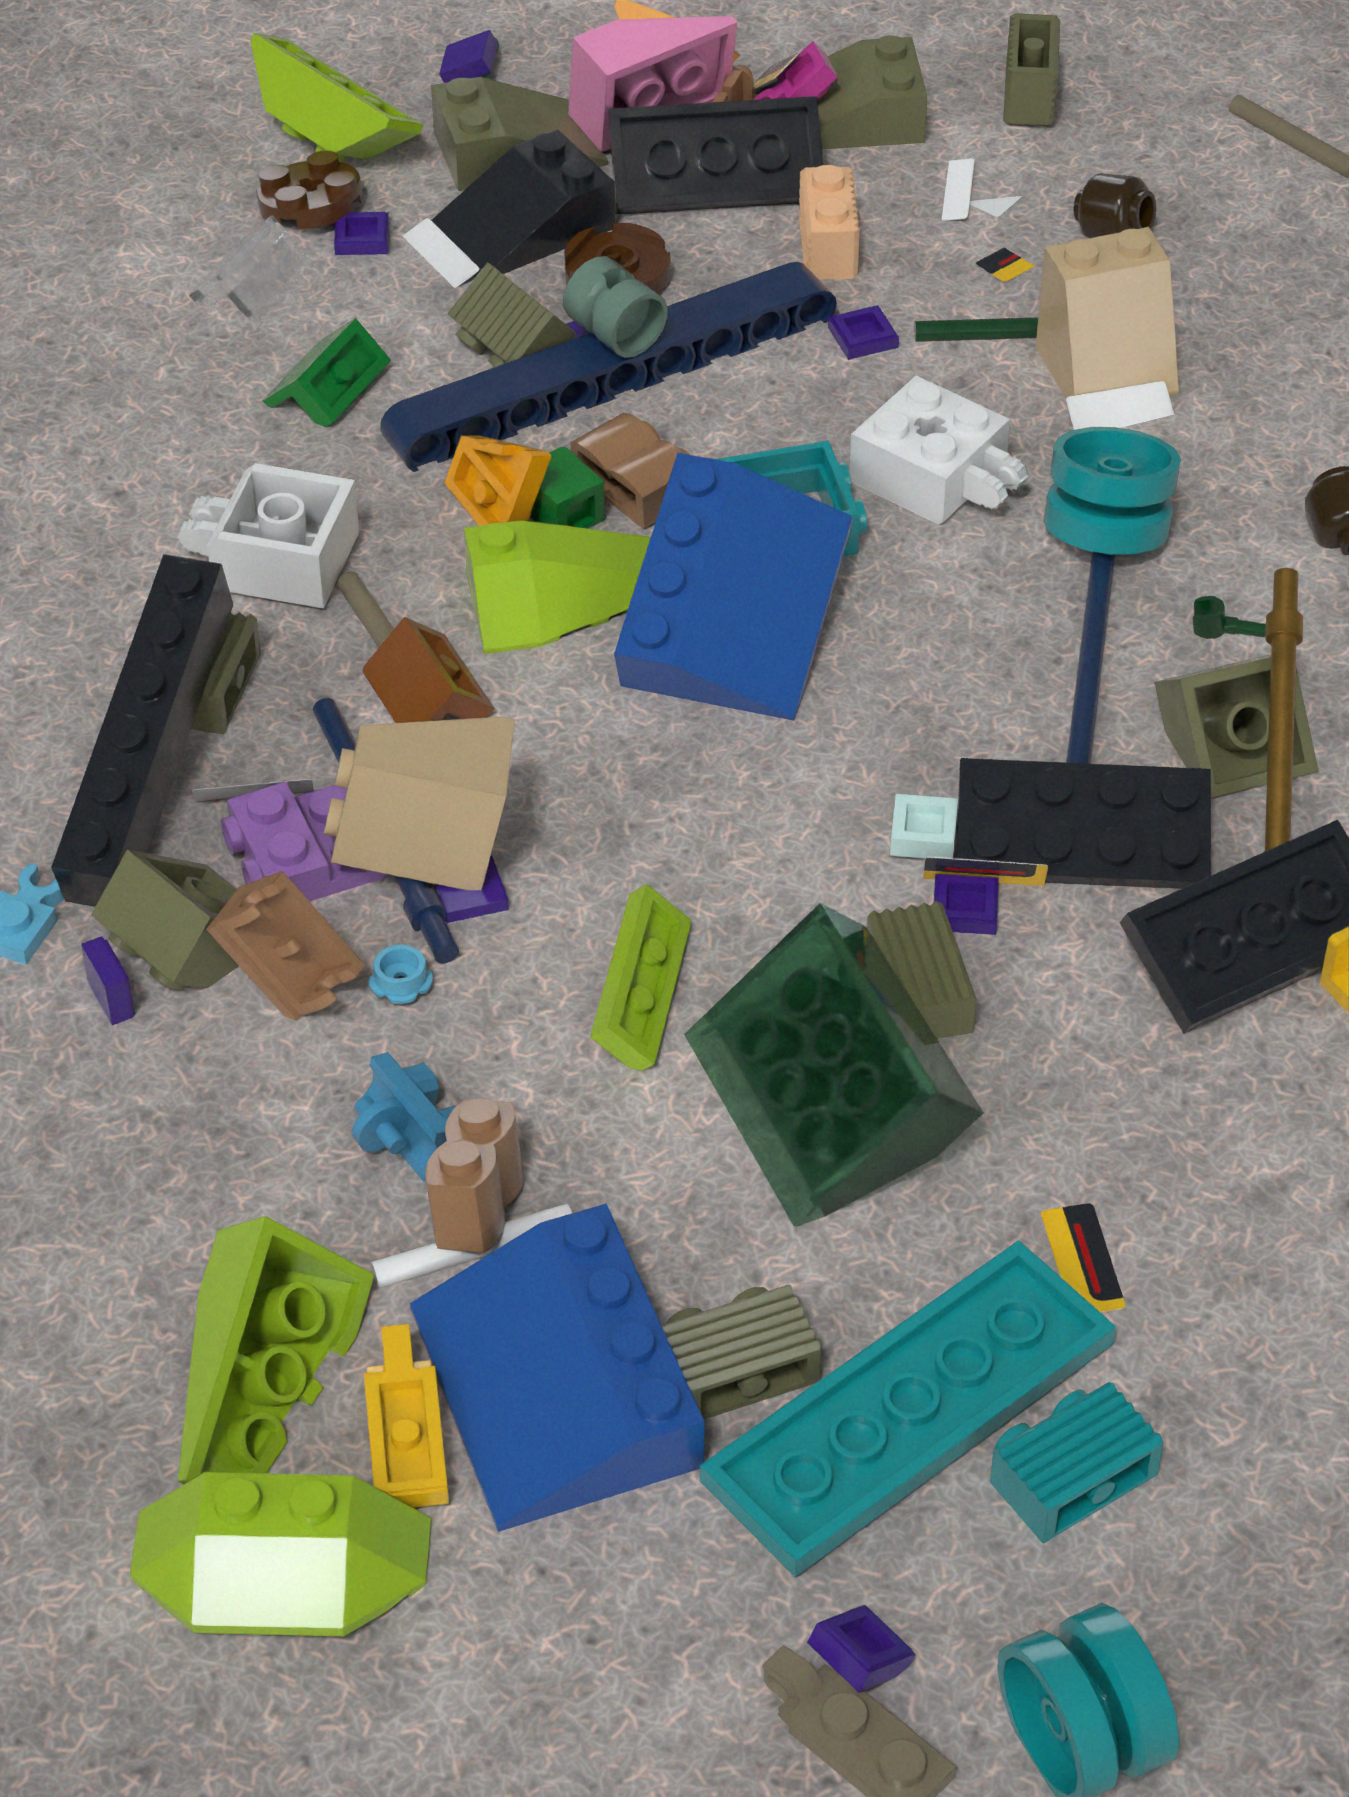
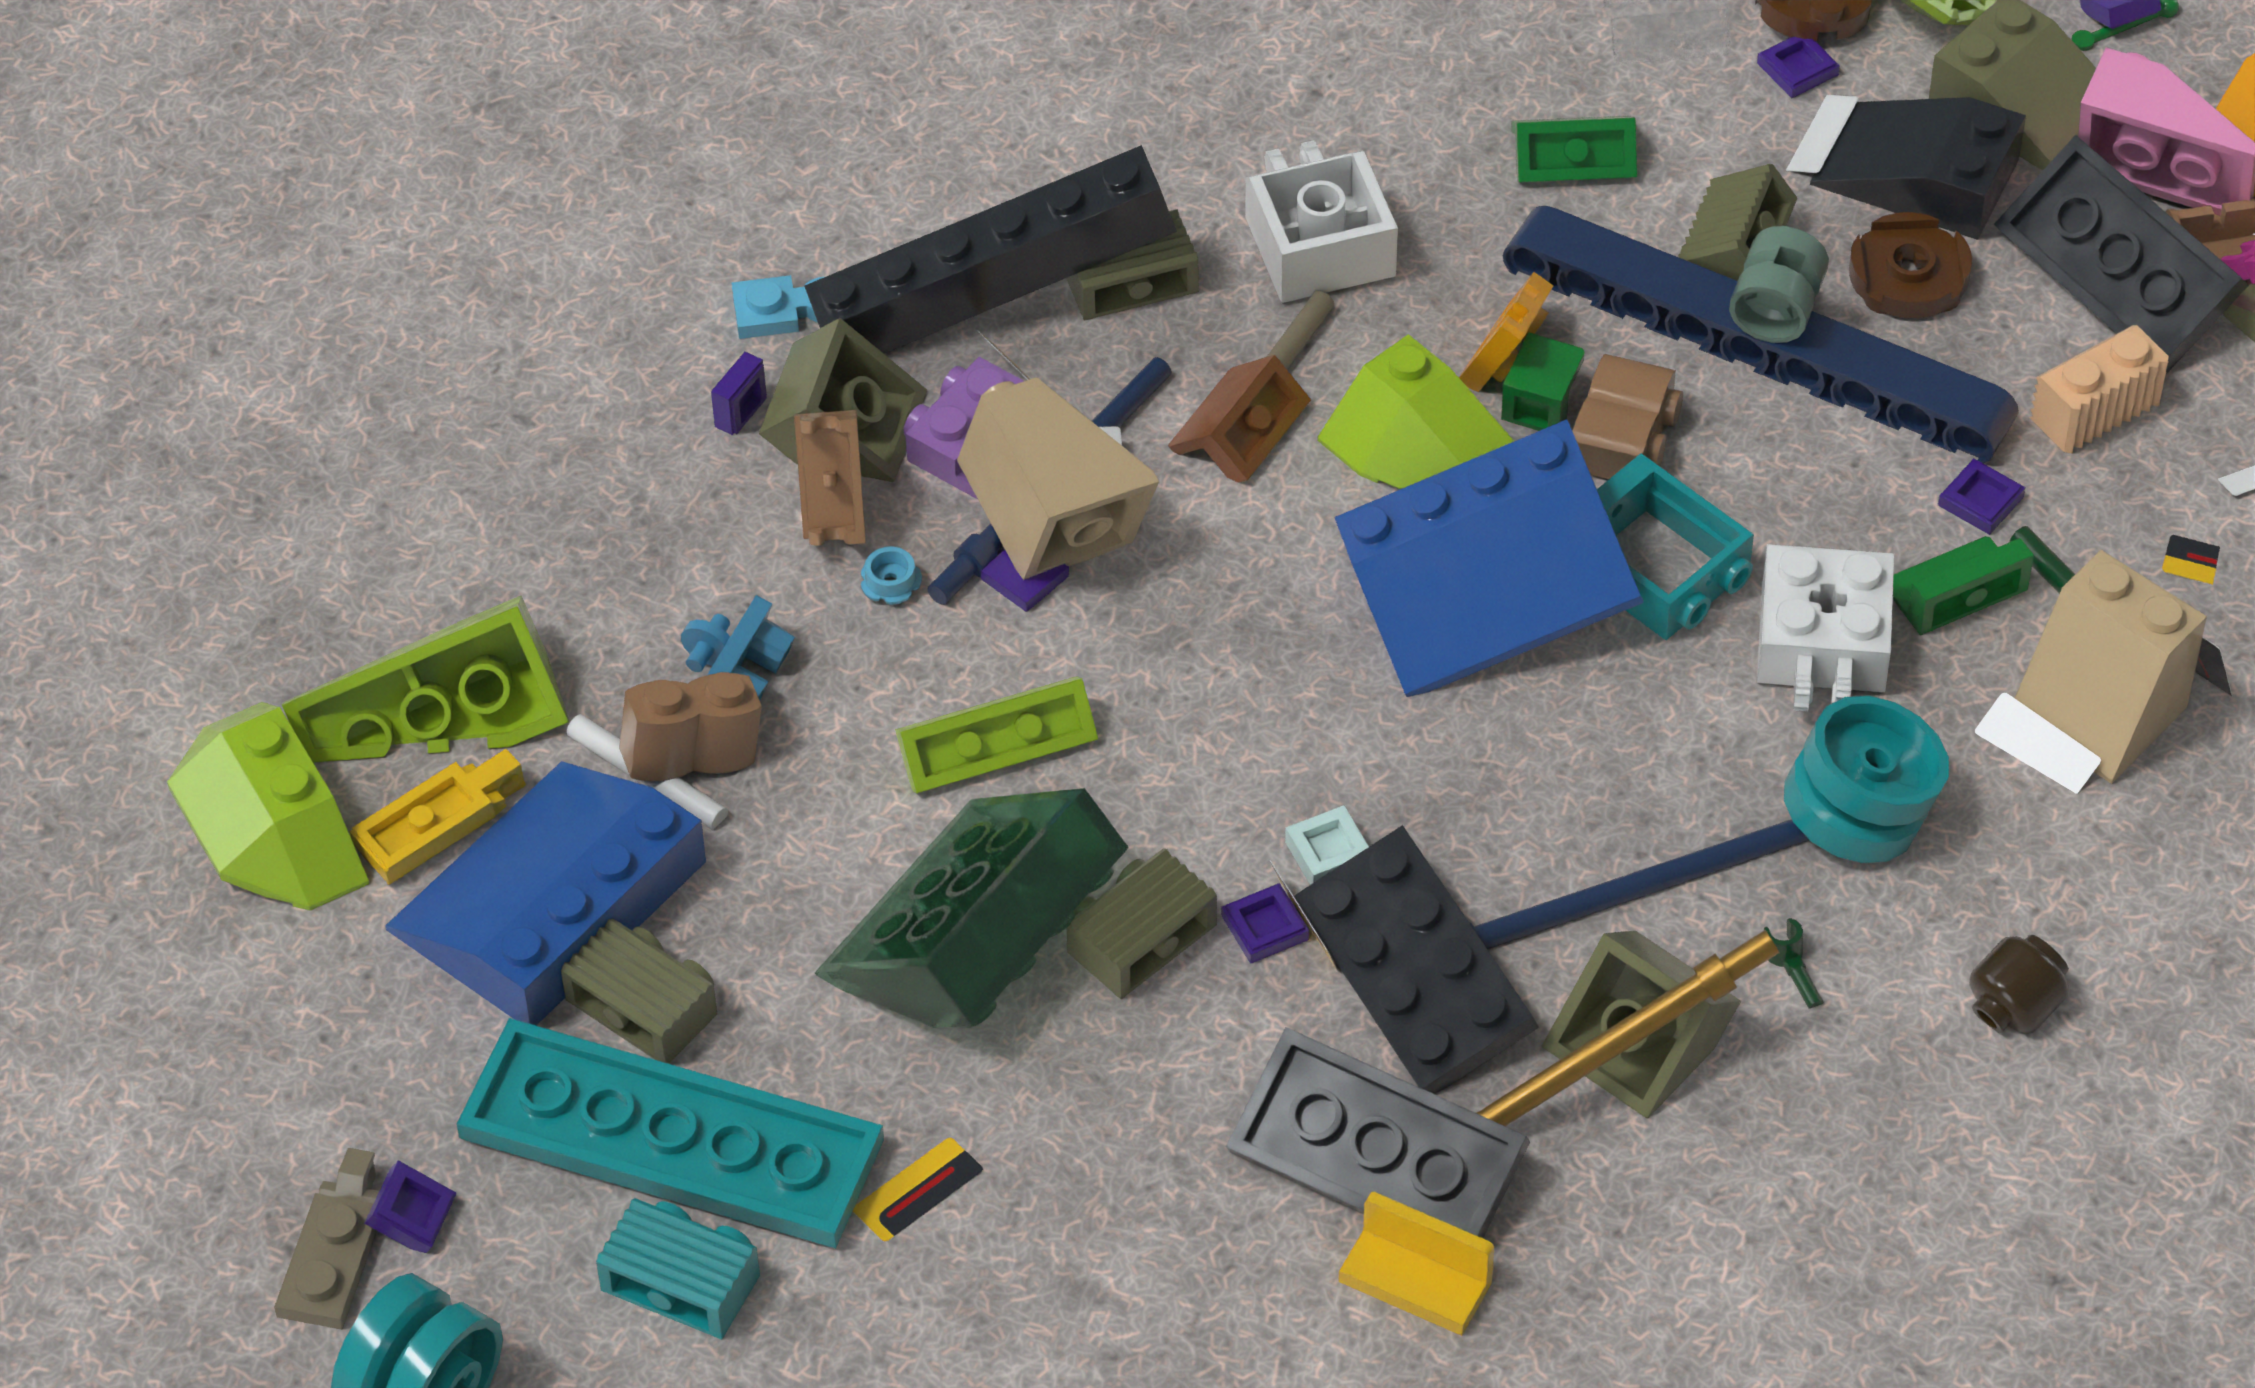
camera: 60 degrees right, 5 degrees up
(940, 365) = (1962, 582): none -> green panel

